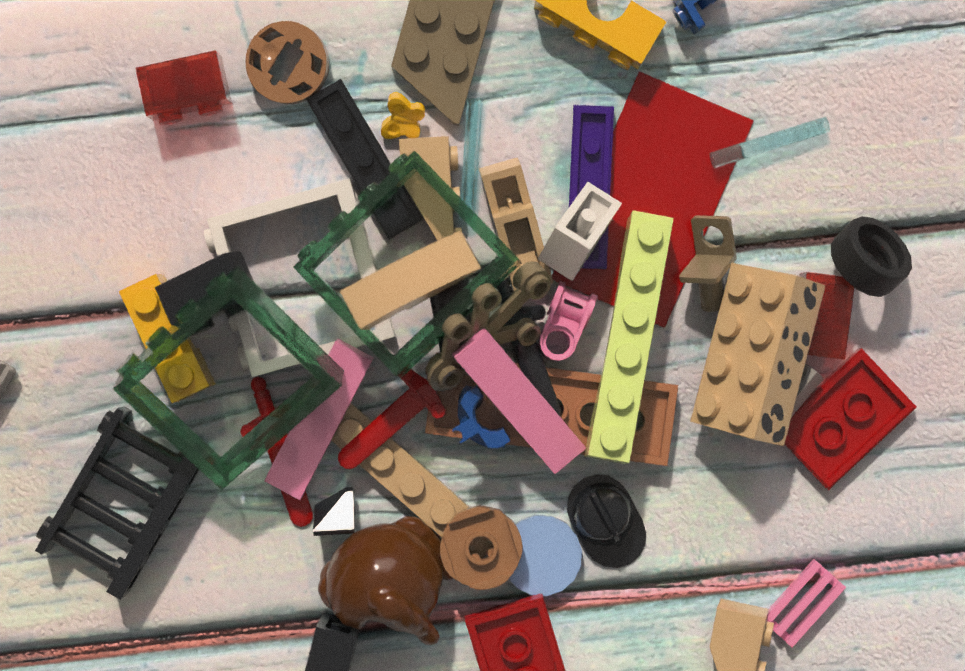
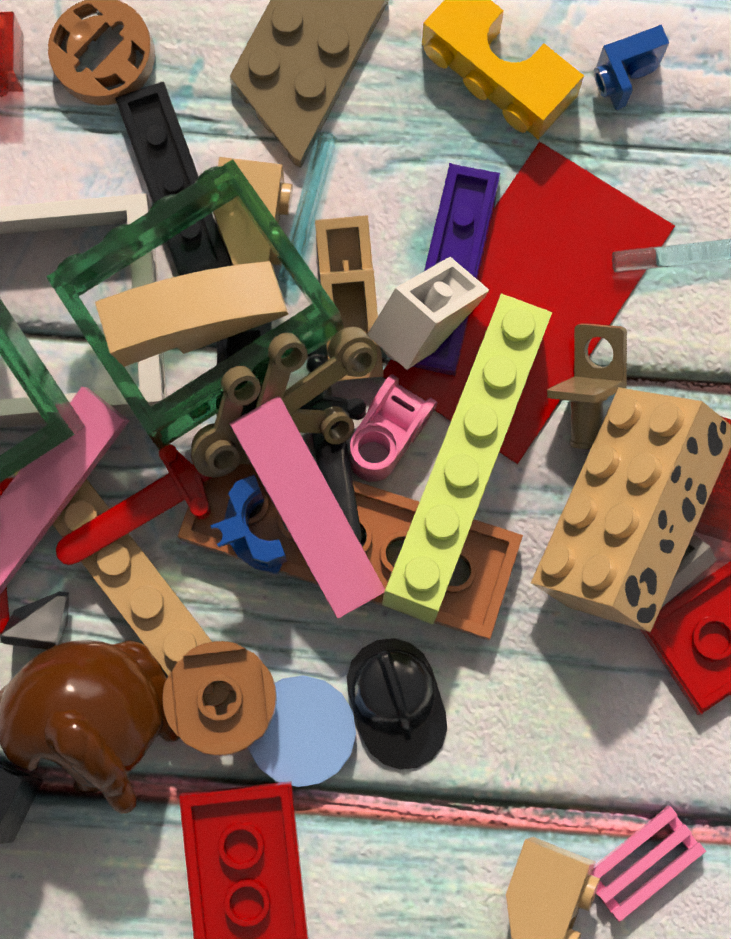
camera: 10 degrees right, 10 degrees down
(403, 117) = (233, 137): yellow piece -> none

